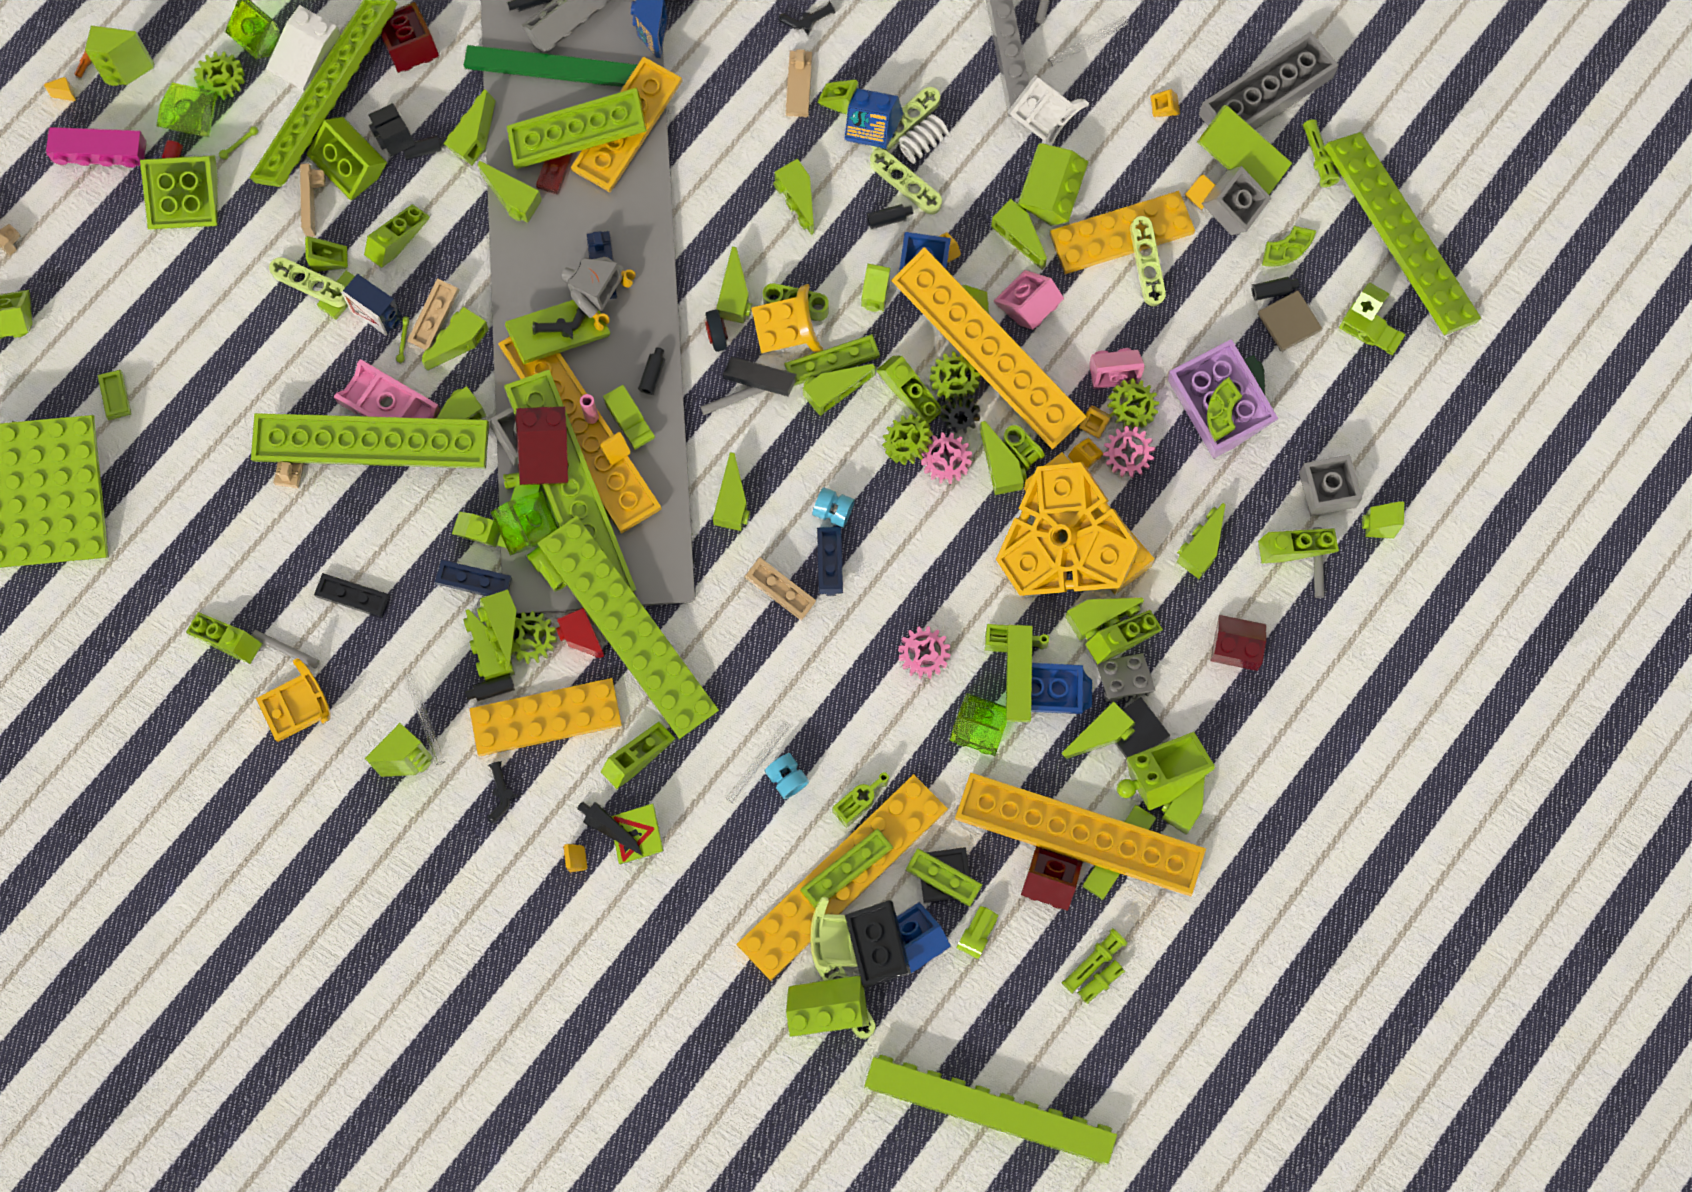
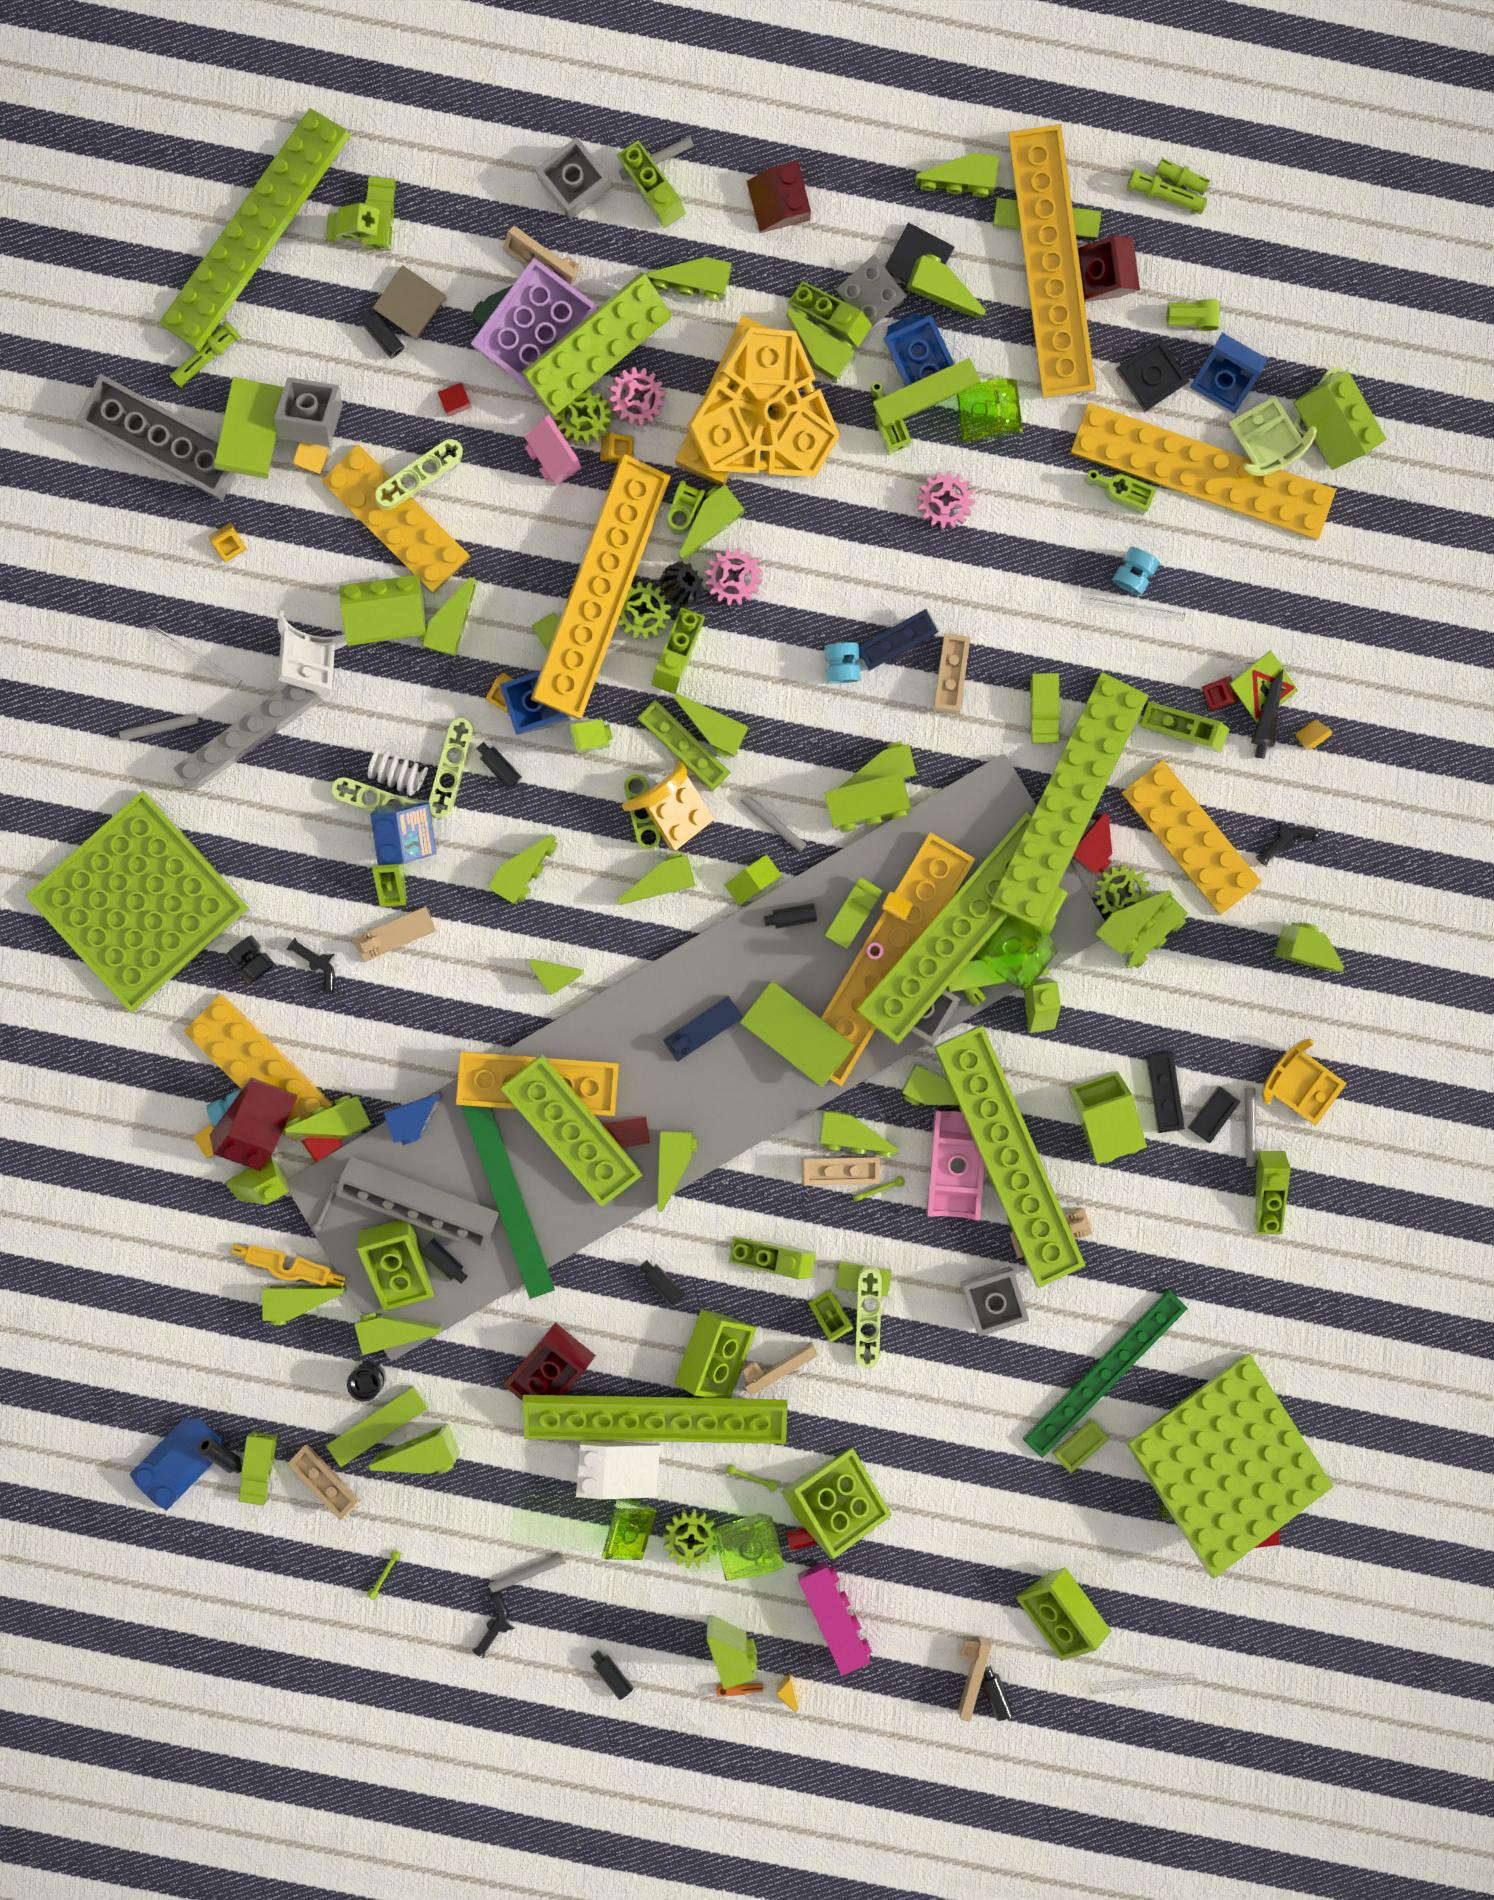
camera: 115 degrees left, 15 degrees up
(159, 441) = (1105, 1373): none -> green tile
(264, 378) = (994, 1301): none -> light grey brick
(312, 625) = (1214, 1114): none -> black tile
(357, 536) = (1108, 1117): none -> lime slope
(372, 304) = (864, 1235): dark blue piece -> none
(390, 129) = (664, 1325): black piece -> none
(424, 719) = (1251, 953): clear piece -> none
(471, 579) = (1095, 978): dark blue hinge -> none
(472, 132) = (626, 1239): lime slope -> none
(491, 688) = (1196, 910): black cylinder -> none
(542, 445) = (940, 973): dark red slope -> none
(561, 325) = (795, 1029): black piece -> none
(594, 284) = (734, 1019): light grey torso -> none
(651, 795) = (1219, 693): none -> red slope
(698, 362) = (752, 879): none -> lime slope
(705, 178) = (554, 975): none -> lime slope
(709, 470) = (868, 802): none -> lime slope
(714, 649) = (1044, 707): none -> lime piece
(716, 330) = (716, 874): black wheel -> none
(759, 376) = (741, 807): black tile -> none
(847, 868) = (1198, 467): lime tile -> none
(877, 944) = (1260, 397): black tile -> none
(907, 439) = (731, 634): lime gear -> none
(943, 877) = (1158, 372): lime tile -> none
(990, 1110) = (1355, 222): lime brick -> none
(1029, 299) = (520, 577): bright pink slope -> none
(1086, 453) = (657, 441): yellow slope -> none
(1172, 766) = (944, 199): lime slope -> none
(1185, 438) = (597, 344): none -> lime plate
(1195, 317) = (454, 399): none -> red slope
(1220, 409) = (552, 319): lime tile -> none
(1258, 444) = (526, 249): none -> tan hinge
(1288, 249) = (327, 338): lime tile -> none
(1384, 520) = (584, 107): lime slope -> none

